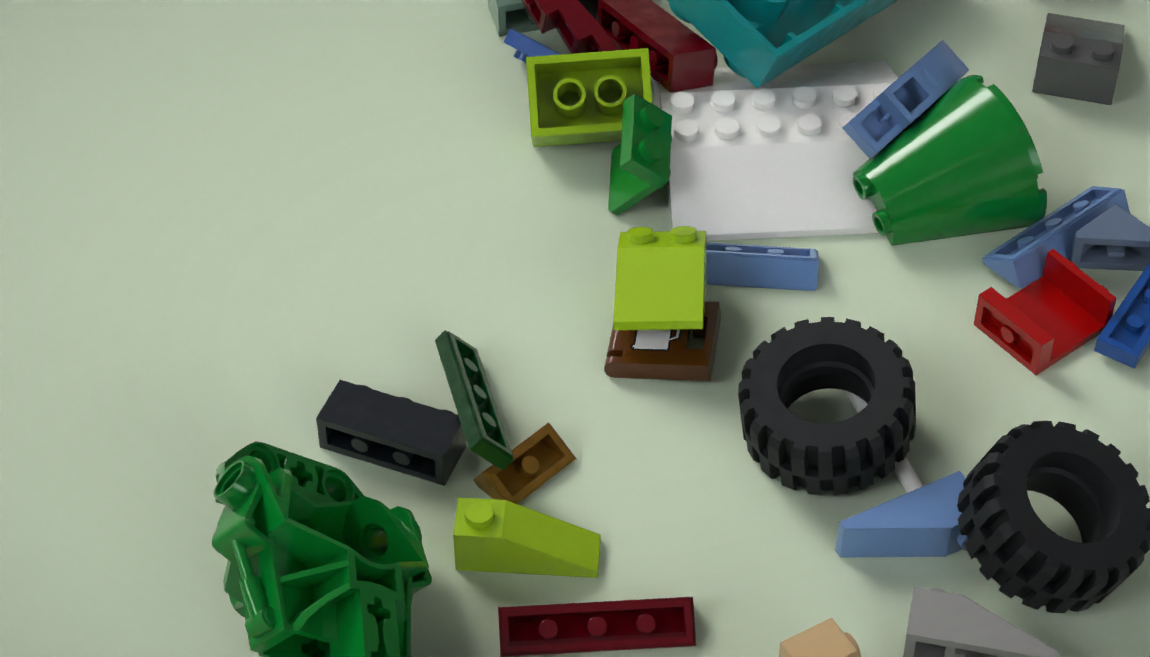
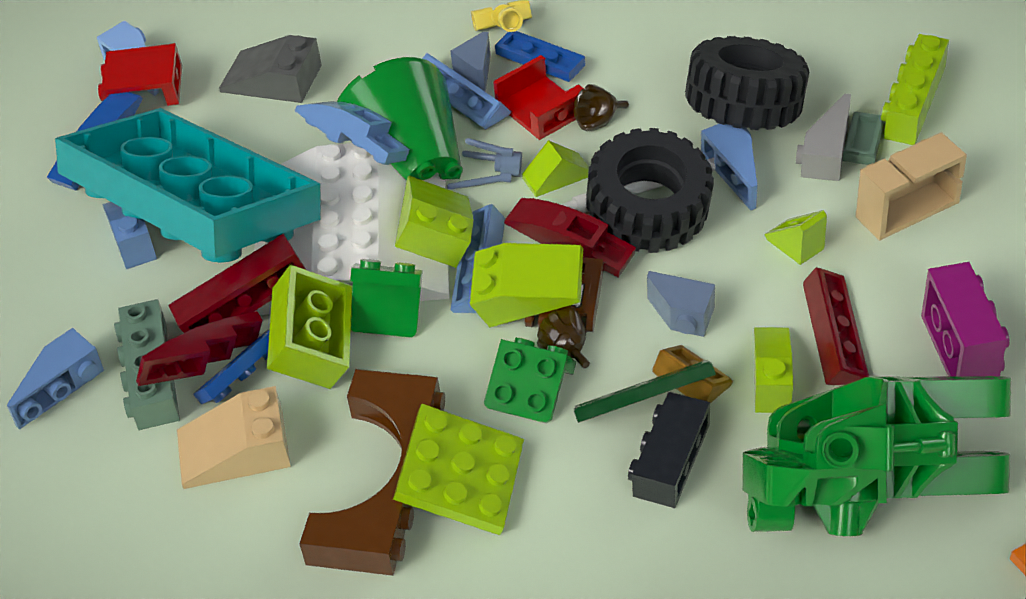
camera: 85 degrees left, 0 degrees up
(378, 240) = (459, 469): none -> lime plate
(455, 77) = (234, 440): none -> tan slope
(471, 202) = (373, 532): none -> reddish brown arch
(530, 296) = (527, 379): none -> green bracket
(585, 338) = (564, 330): none -> dark brown piece
(633, 451) = (681, 302): none -> sand blue slope
(762, 588) = (800, 236): none -> lime slope
(774, 306) = (563, 225): none -> dark red slope
(787, 202) = (434, 222): none -> lime slope
(907, 281) = (506, 162): none -> sand blue plant
(910, 329) = (554, 168): none -> lime slope
(1025, 370) = (595, 107): none -> dark brown piece

